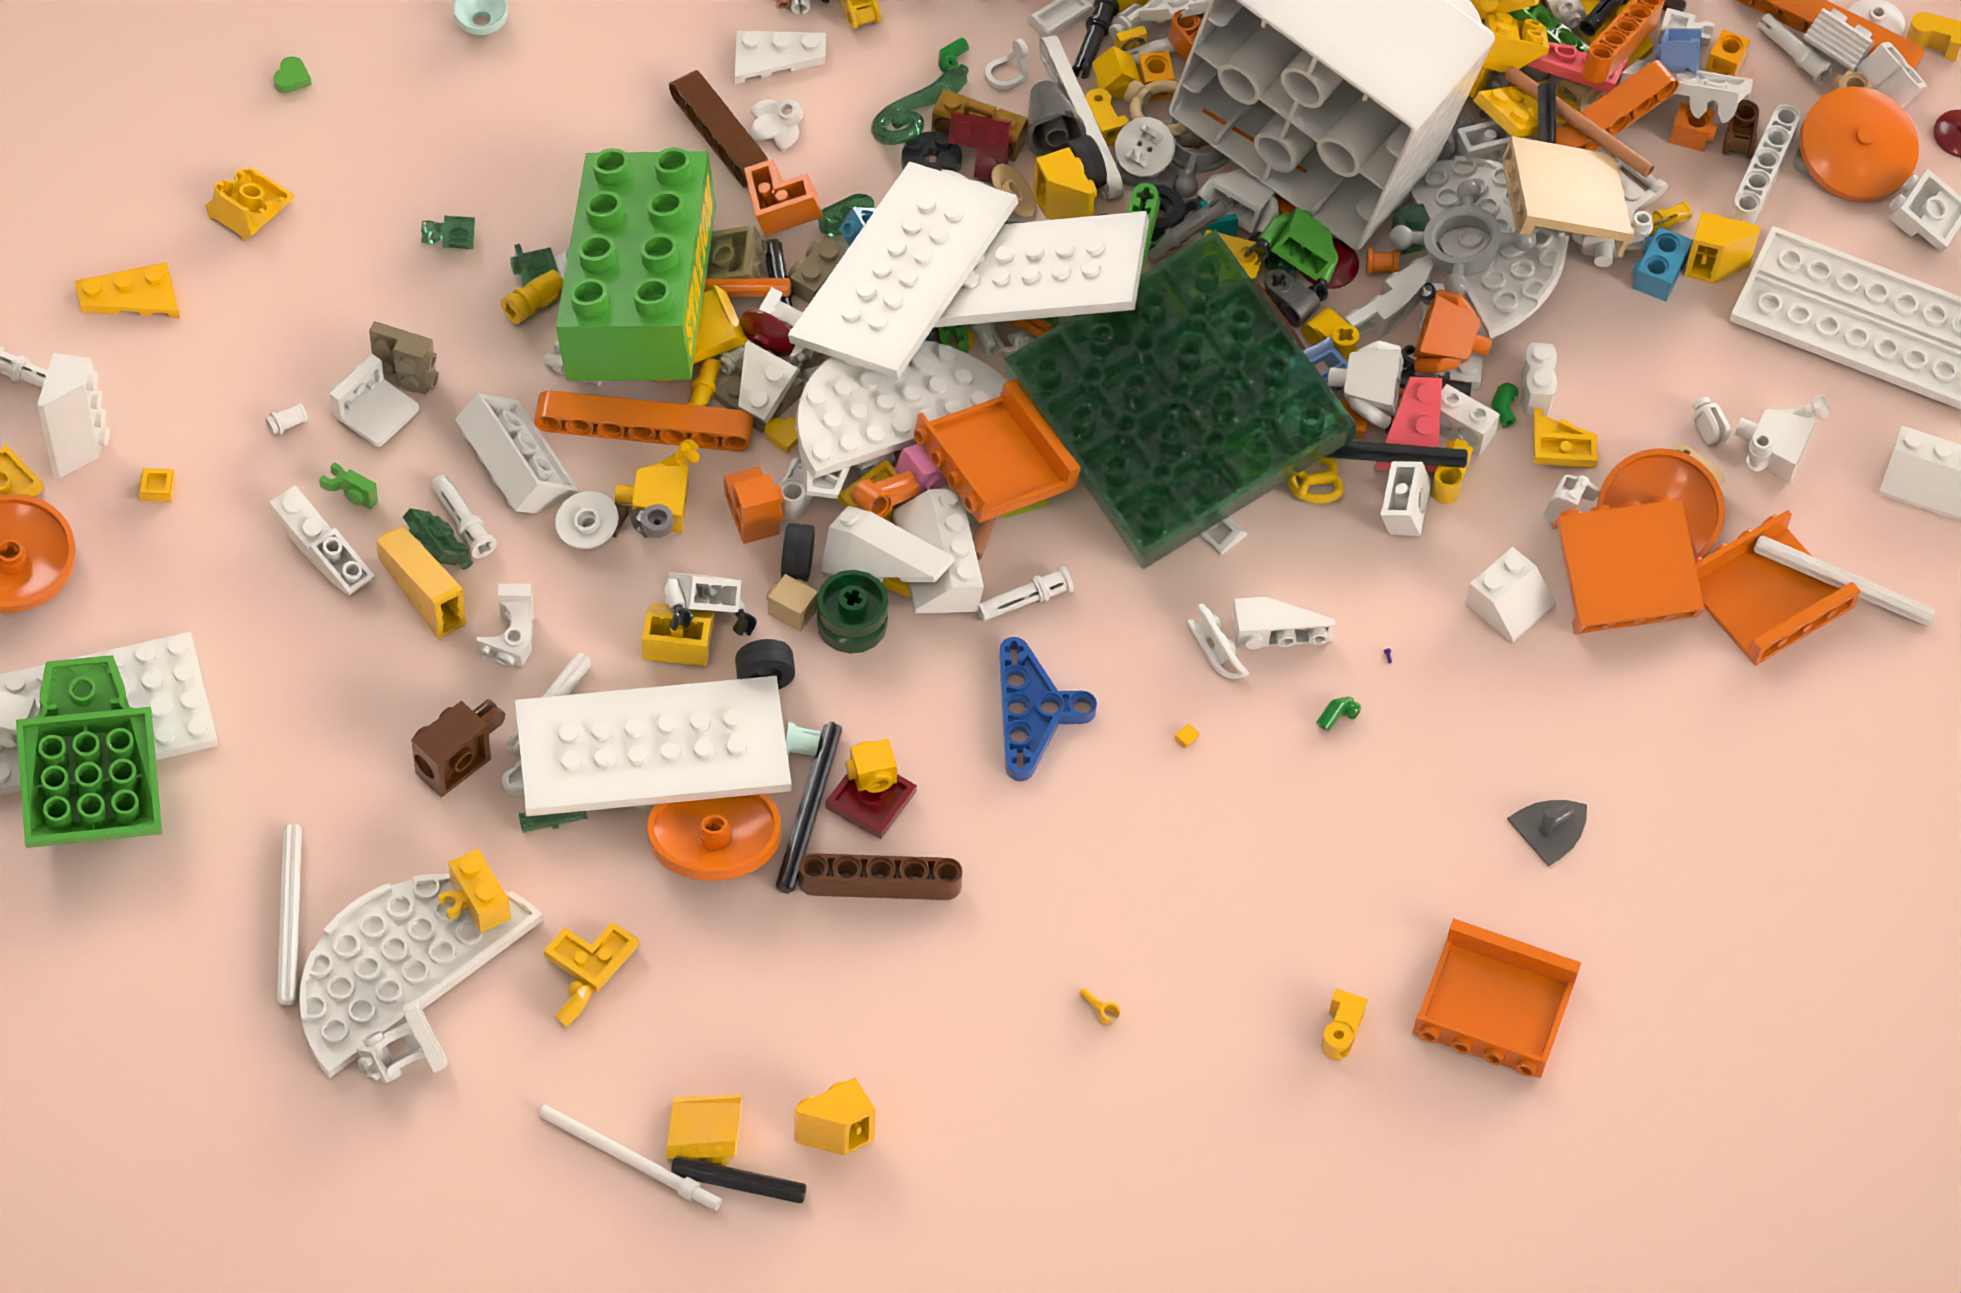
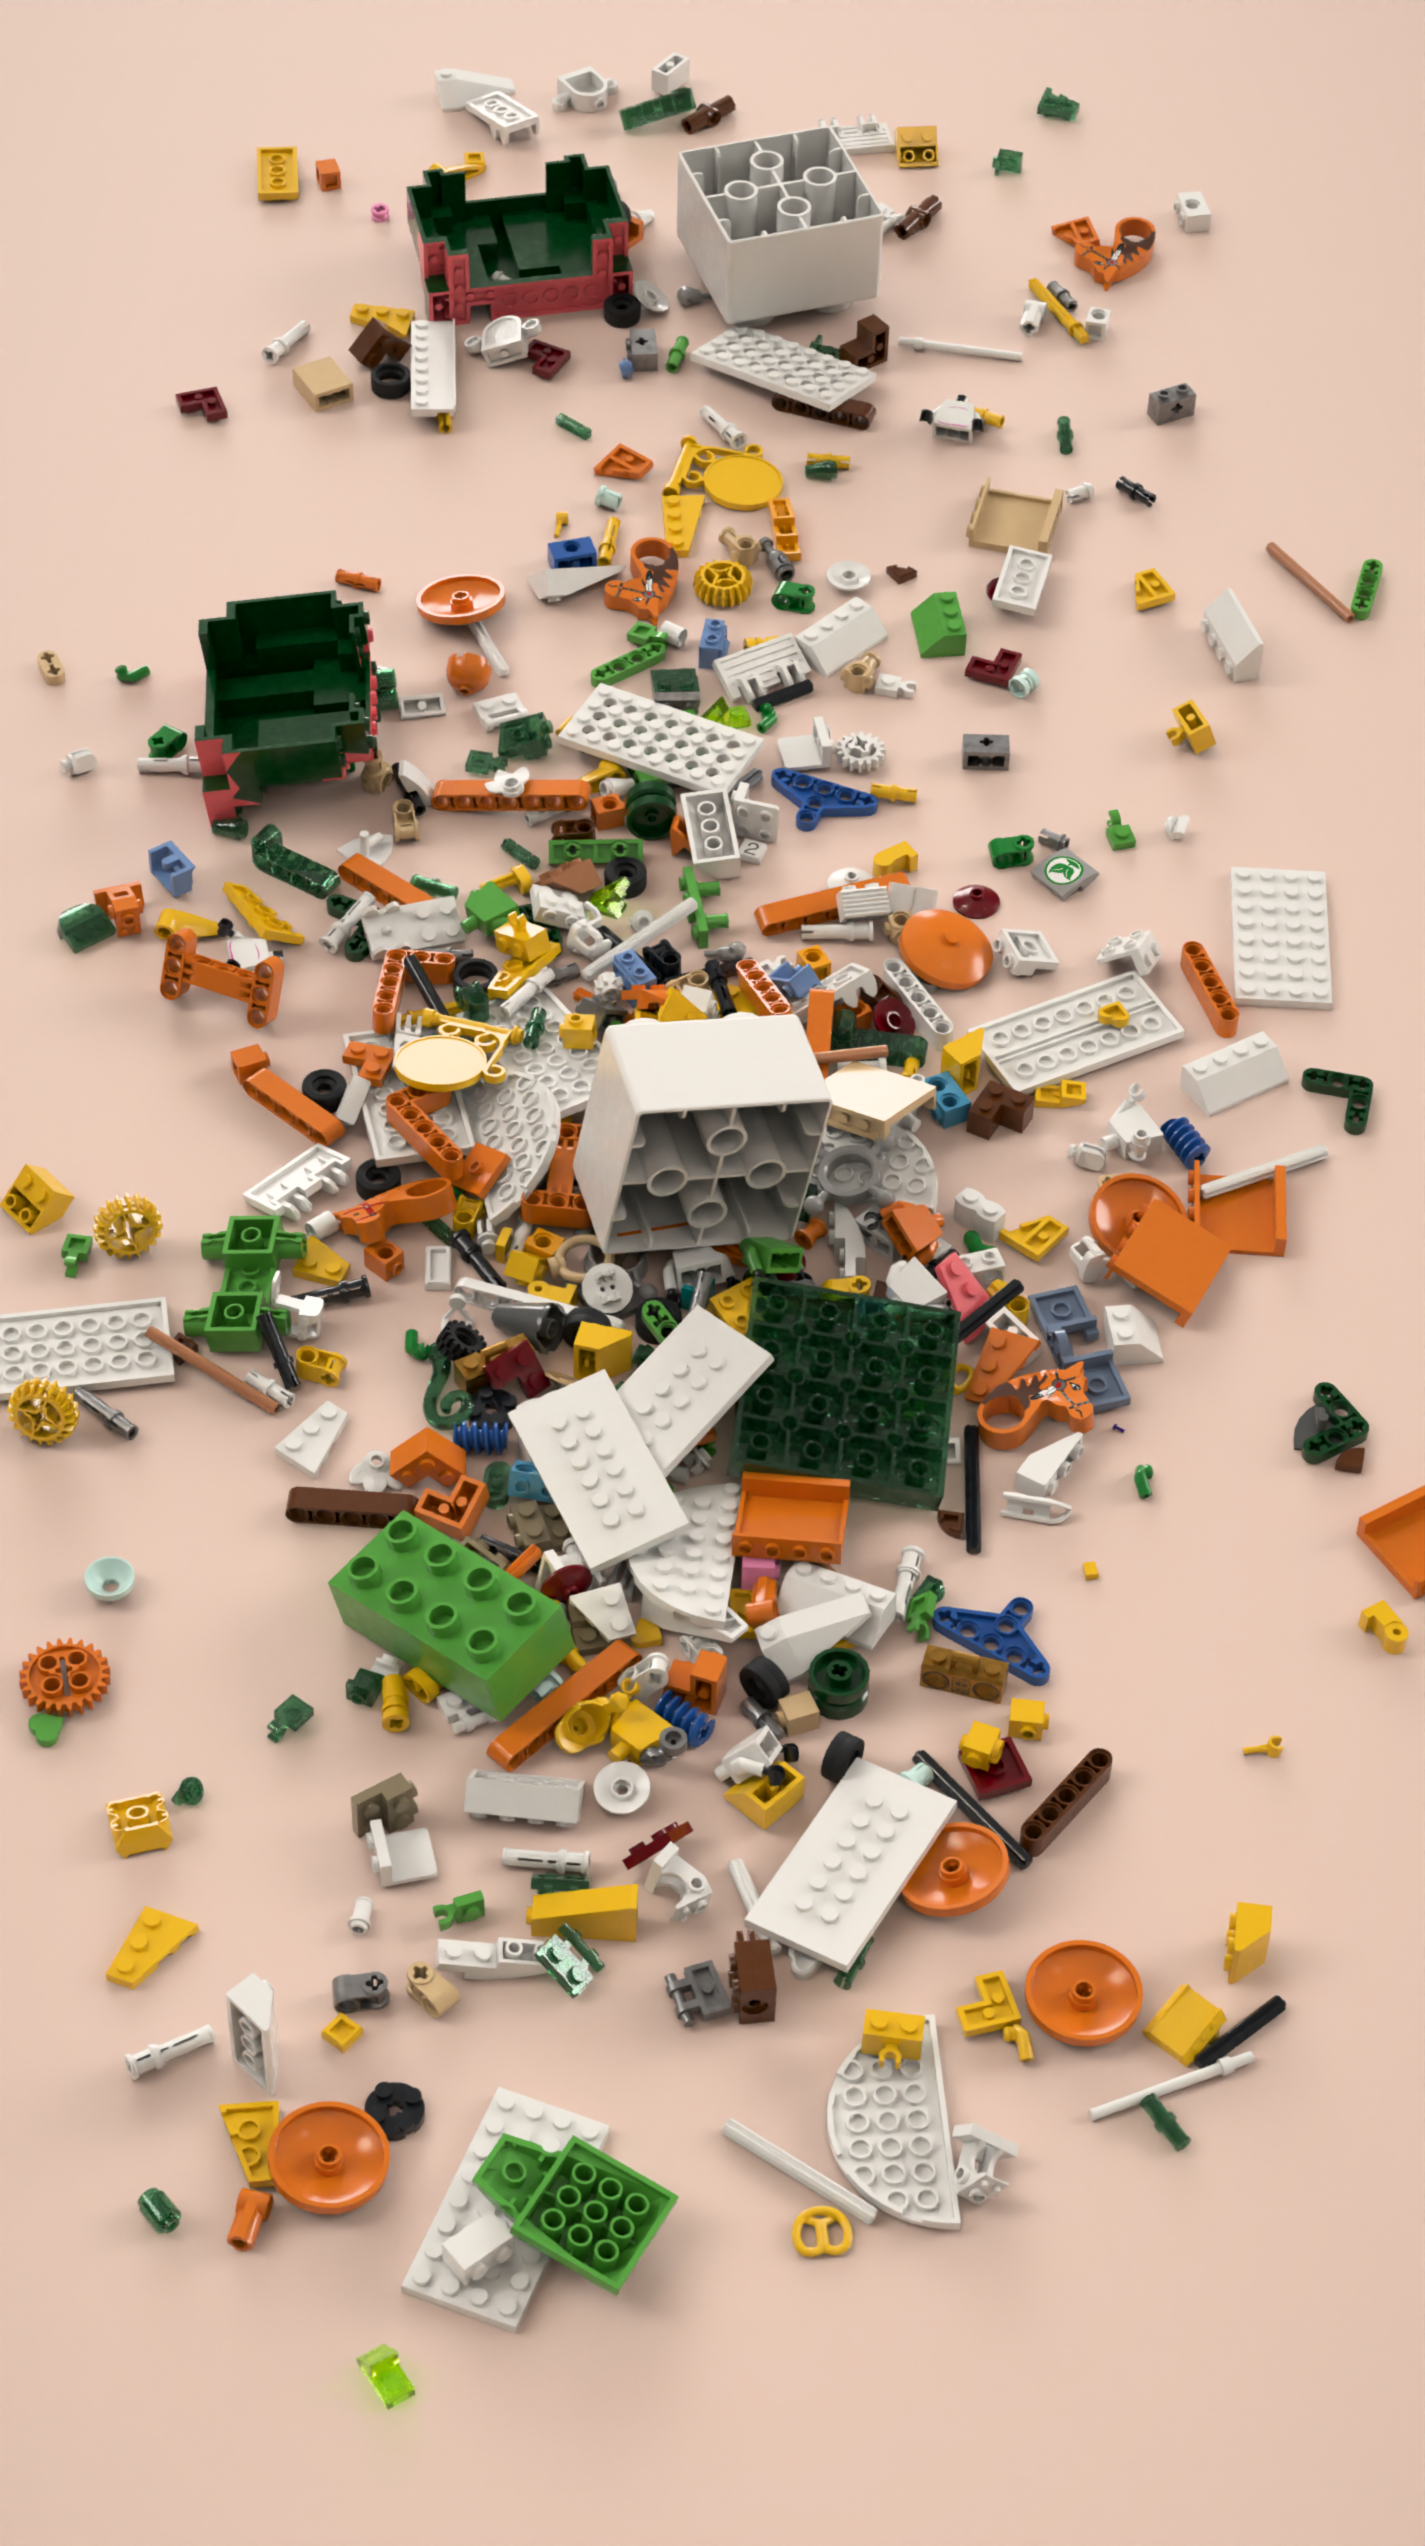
camera: 50 degrees left, 10 degrees down
(101, 558) = (396, 2095): none -> black plate
(203, 469) = (358, 1992): none -> flat silver piece
(239, 970) = (823, 2246): none -> yellow piece
(248, 516) = (430, 1989): none -> tan piece
(311, 215) = (189, 1792): none -> clear green plate
(351, 51) = (43, 1682): none -> orange gear
(351, 597) = (564, 1965): none -> clear green plate
(423, 713) = (706, 1989): none -> flat silver plate
(543, 582) = (660, 1839): none -> dark red plate
(580, 1175) = (1165, 2122): none -> clear green pin
(644, 446) = (590, 1722): none -> yellow piece
(651, 391) = (546, 1686): none -> light aqua bush
(663, 1019) = (1083, 1993): none -> orange dish
(704, 517) = (681, 1716): none -> blue piece
(720, 456) = (649, 1673): none -> white piece
(763, 579) = (761, 1717): none -> flat silver axle
(822, 145) = (425, 1456): none -> orange brick
(878, 162) = (481, 1438): none -> blue piece
(950, 787) = (1027, 1719): none -> yellow brick
(956, 704) = (964, 1674): none -> pearl gold piece
(985, 71) = (459, 1340): none -> black tyre
(1002, 627) = (919, 1612): none -> bright green plate
(1034, 618) = (932, 1584): none -> clear green plate
(1138, 589) = (951, 1523): none -> reddish brown tile
(1193, 580) = (972, 1489): none -> black axle
(1344, 558) = (1033, 1397): none -> orange animal
(1356, 503) = (999, 1361): none -> orange wing
(1427, 595) = (1065, 1313): none -> sand blue plate
(1536, 875) = (1351, 1460): none -> reddish brown tile
(1575, 842) = (1342, 1426): none -> dark green beam
(1656, 142) = (900, 1046): none -> clear green beam
(1693, 309) = (997, 1107): none -> reddish brown brick
(1734, 158) = (893, 1017): none -> dark red dish
(1771, 354) = (1066, 1095): none -> yellow slope
(1811, 491) = (1185, 1141): none -> blue piece
(1918, 331) = (1114, 1014): none -> yellow tile

